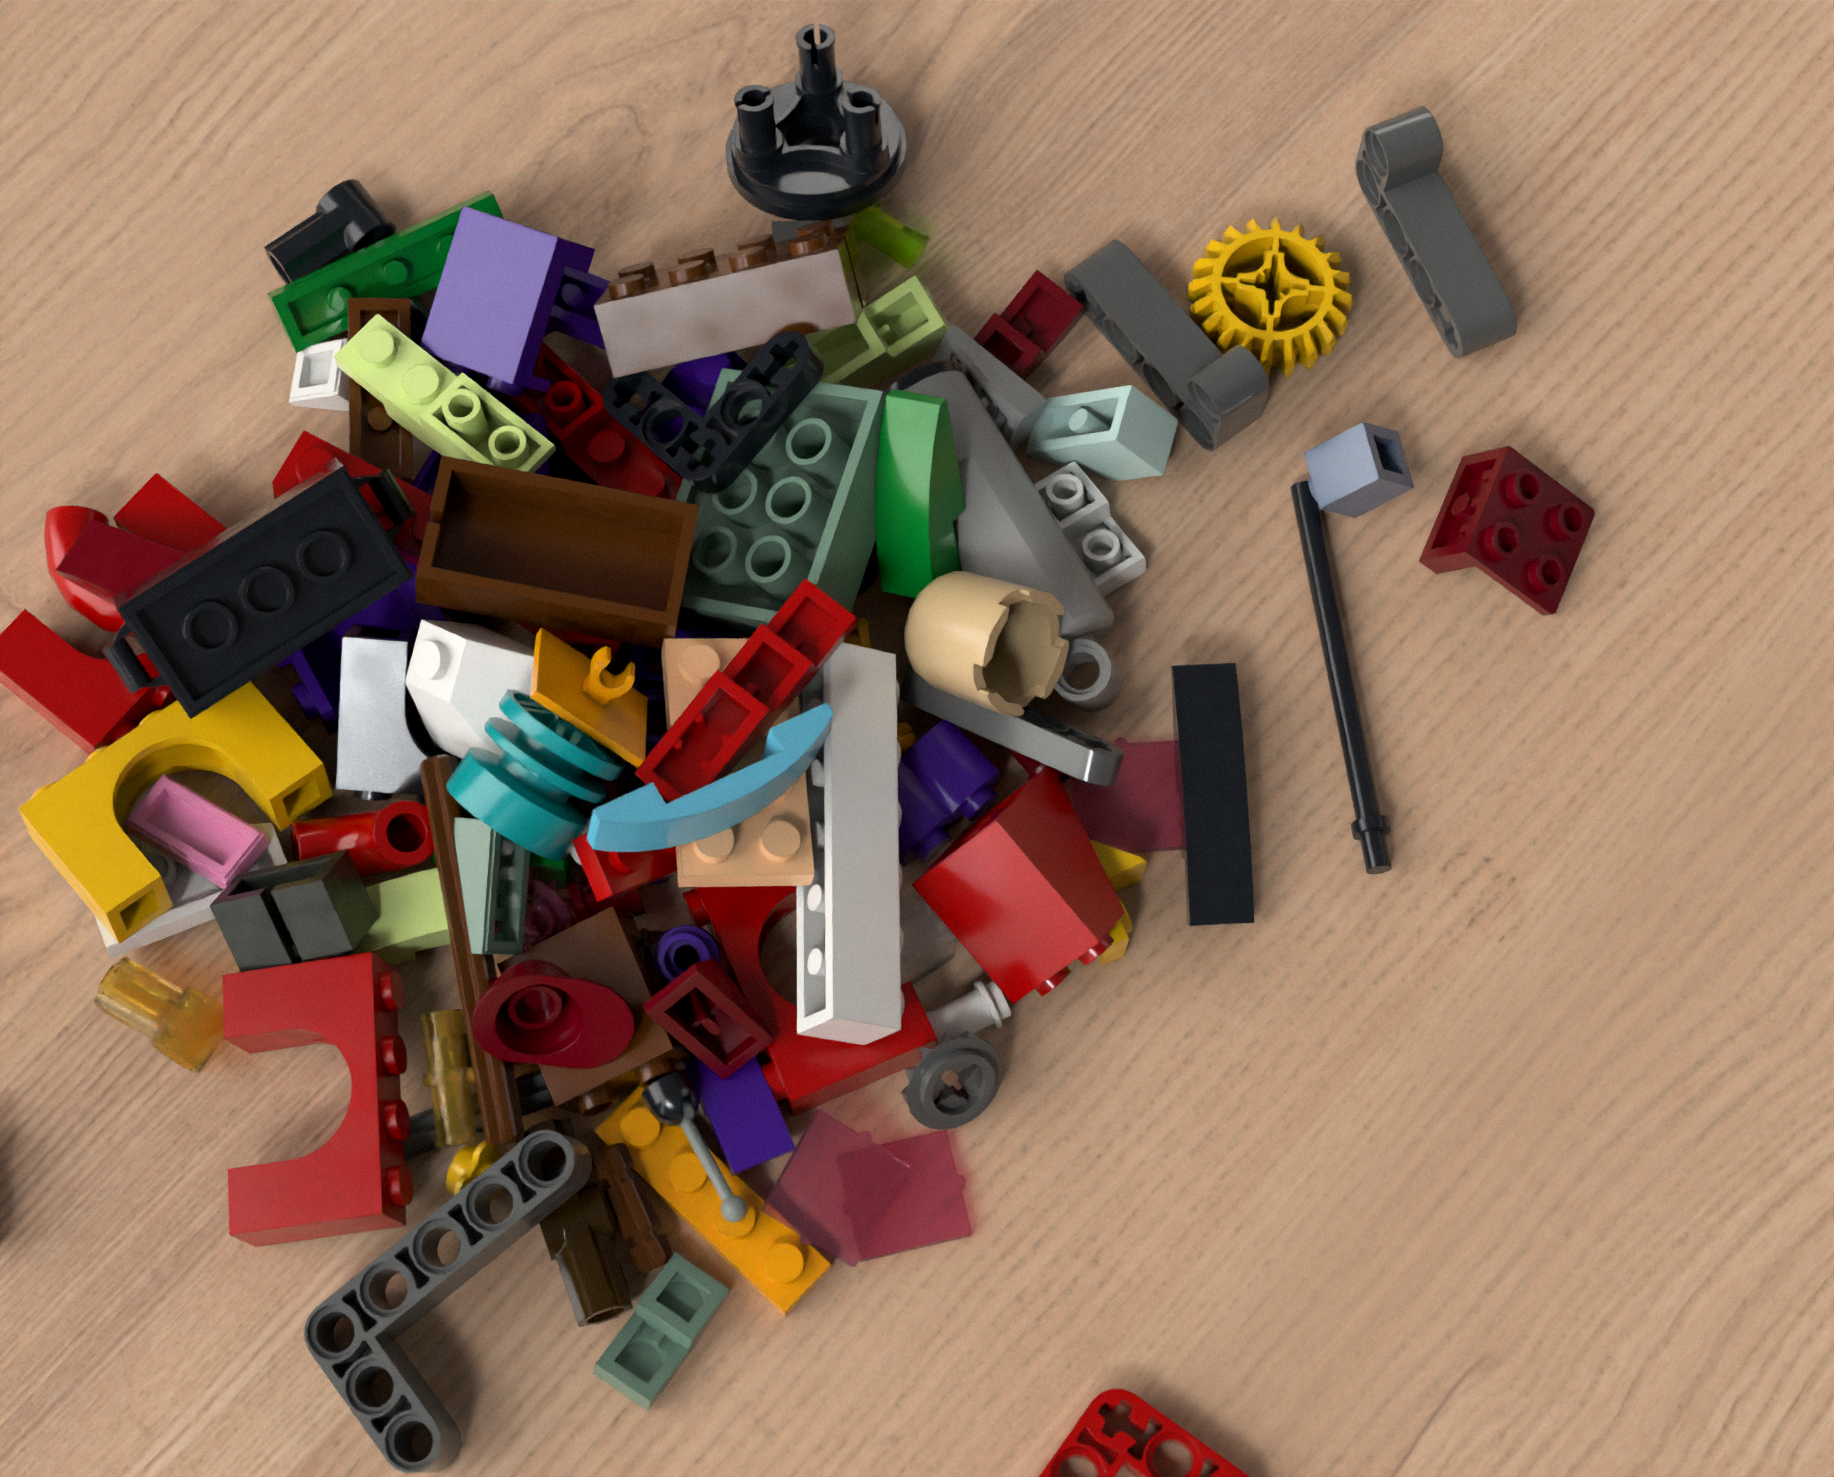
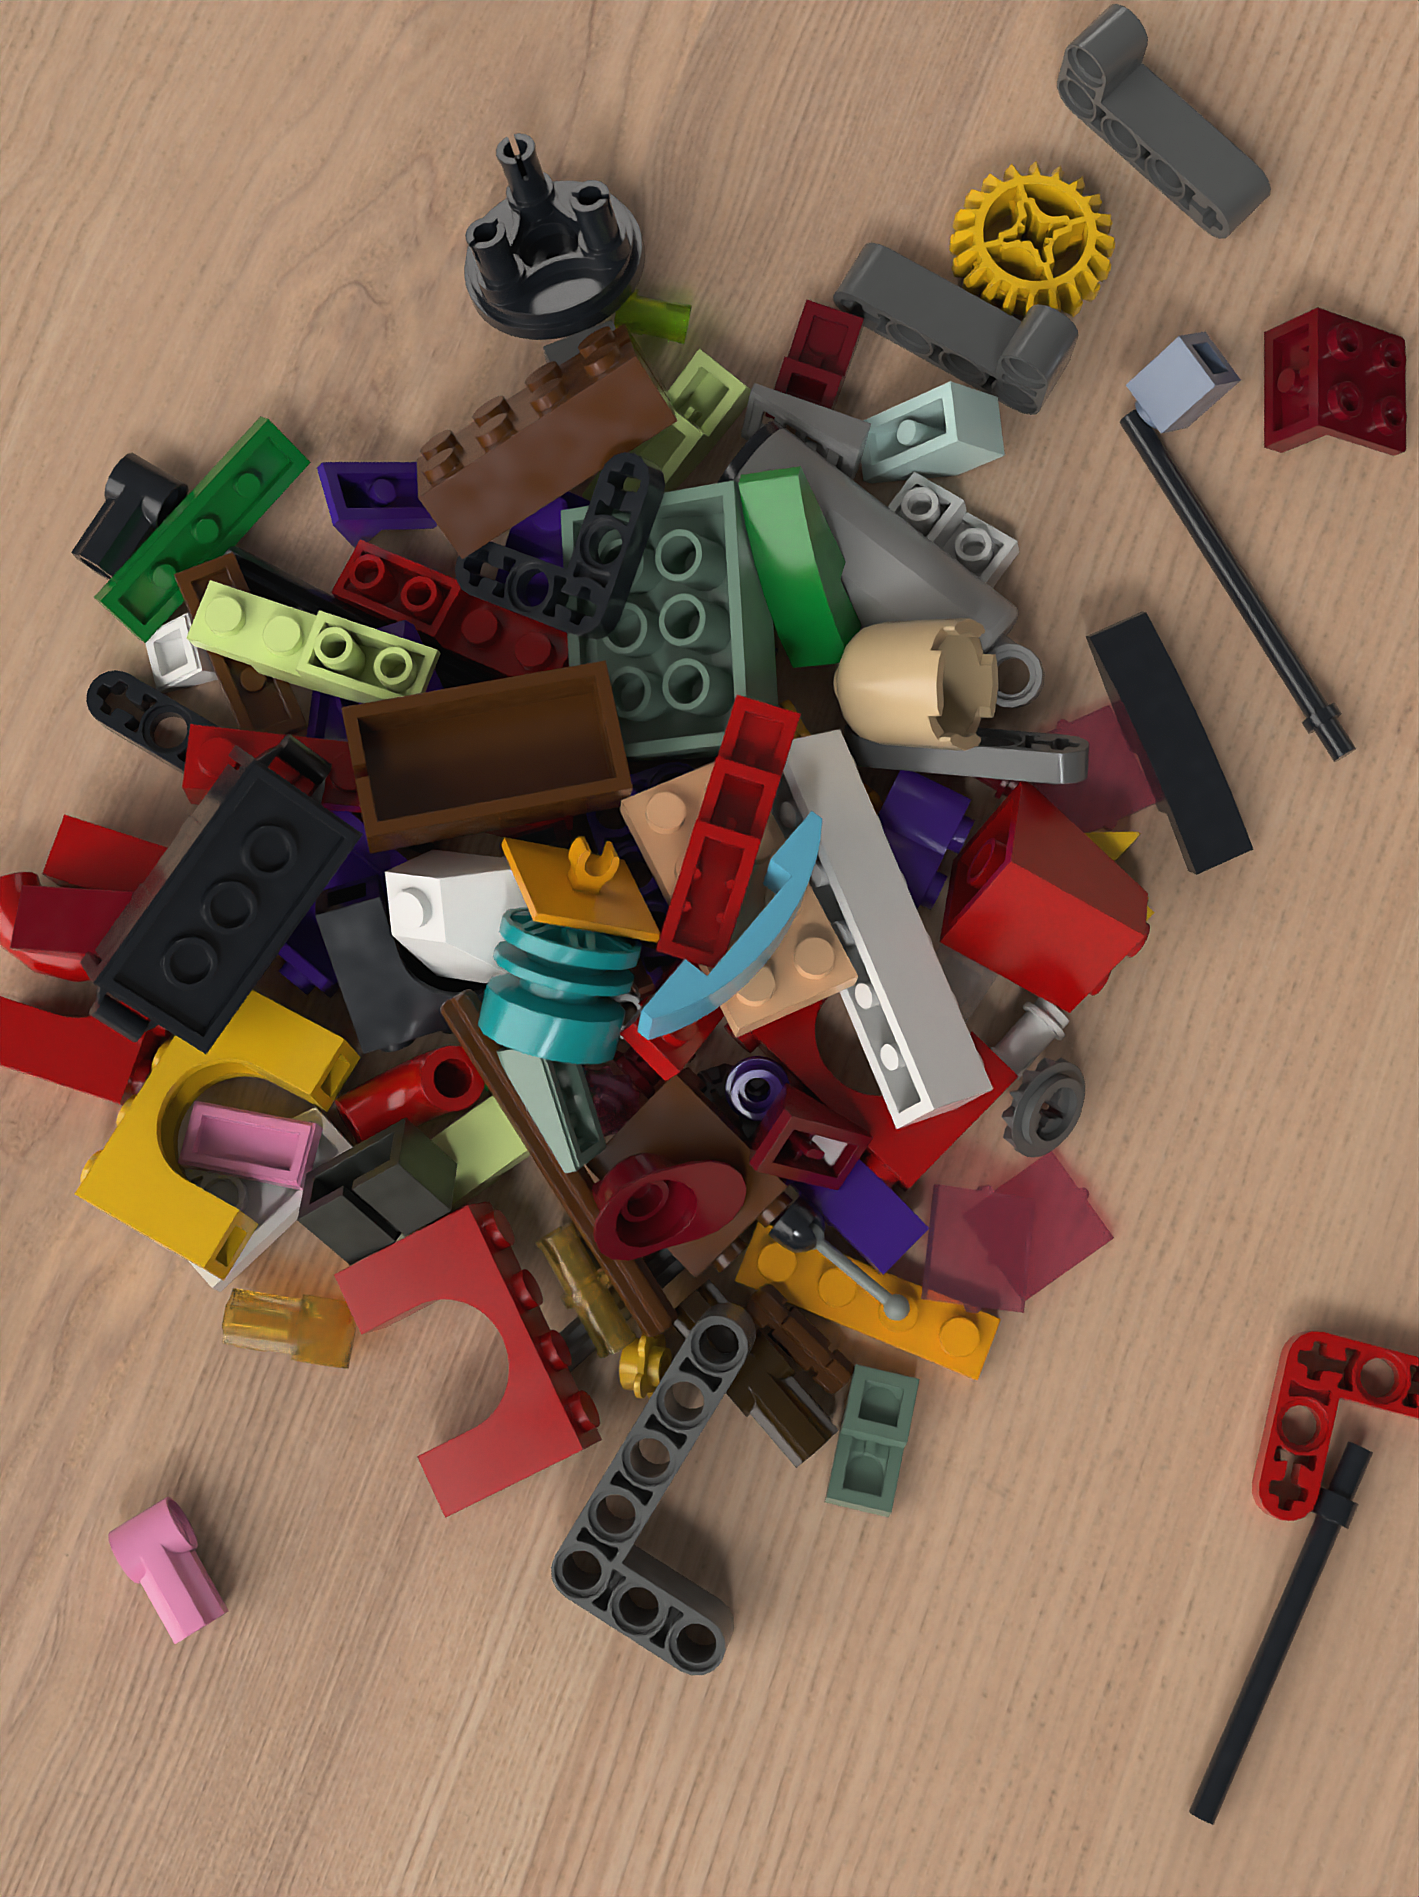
camera: 15 degrees left, 10 degrees up
(280, 409) = (141, 696): none -> black beam
(498, 299) = (322, 523): panel -> none

